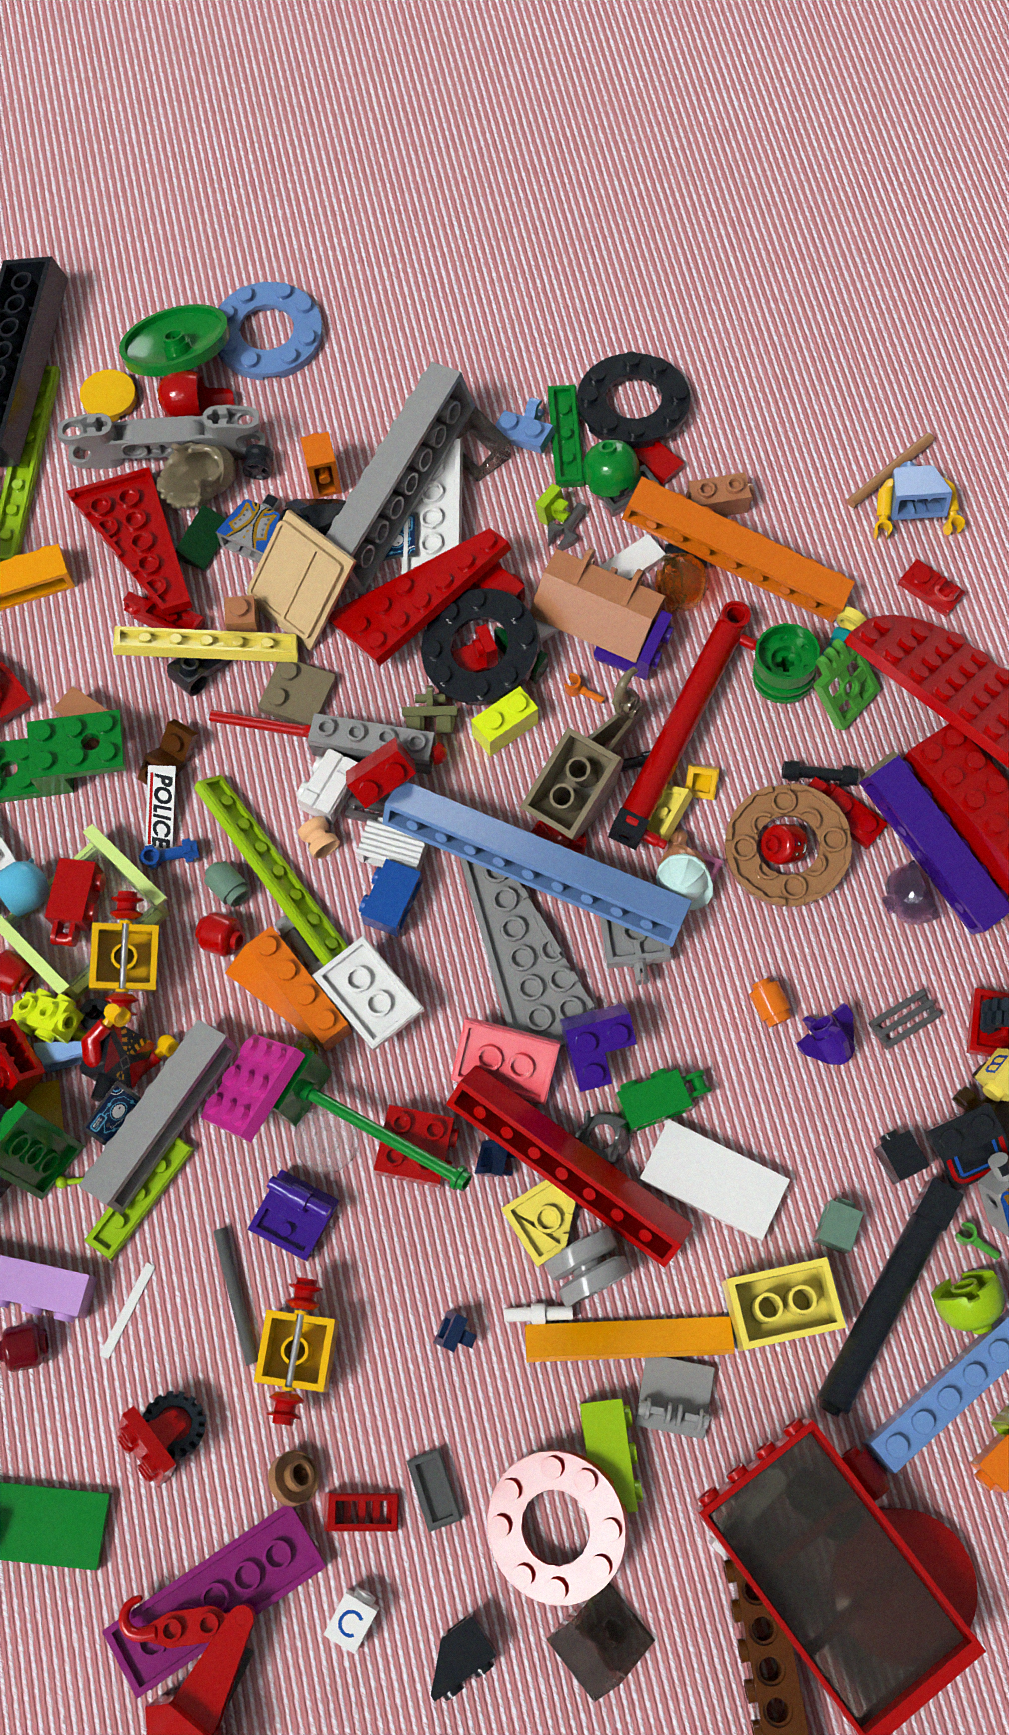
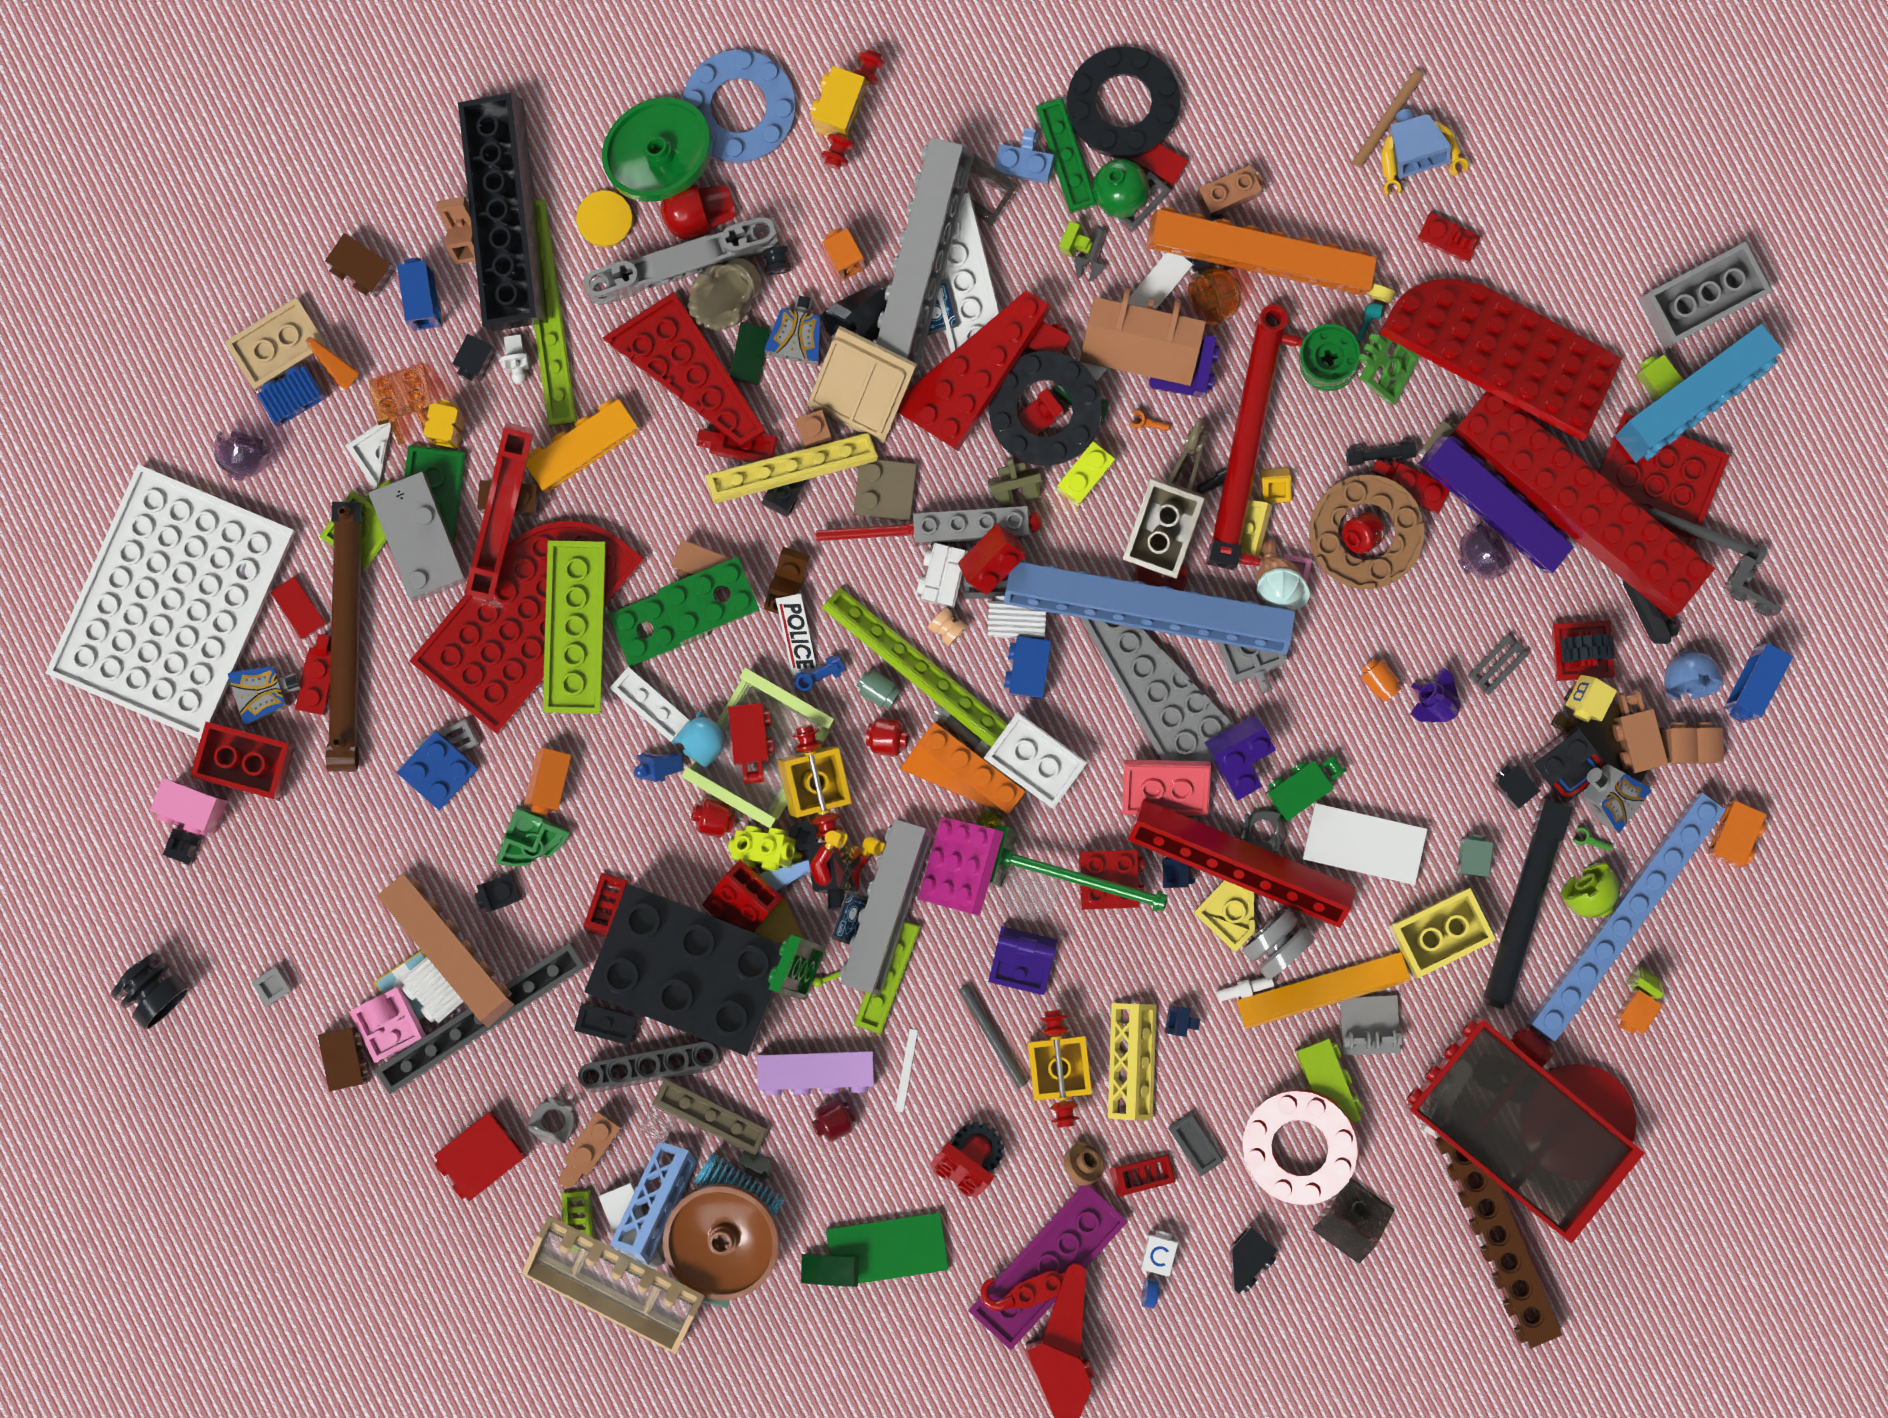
camera: 15 degrees left, 15 degrees up
(328, 1669) = (1150, 1293): none -> blue tile
(362, 338) = (840, 104): none -> yellow brick
(391, 1368) = (1138, 1061): none -> light yellow fence

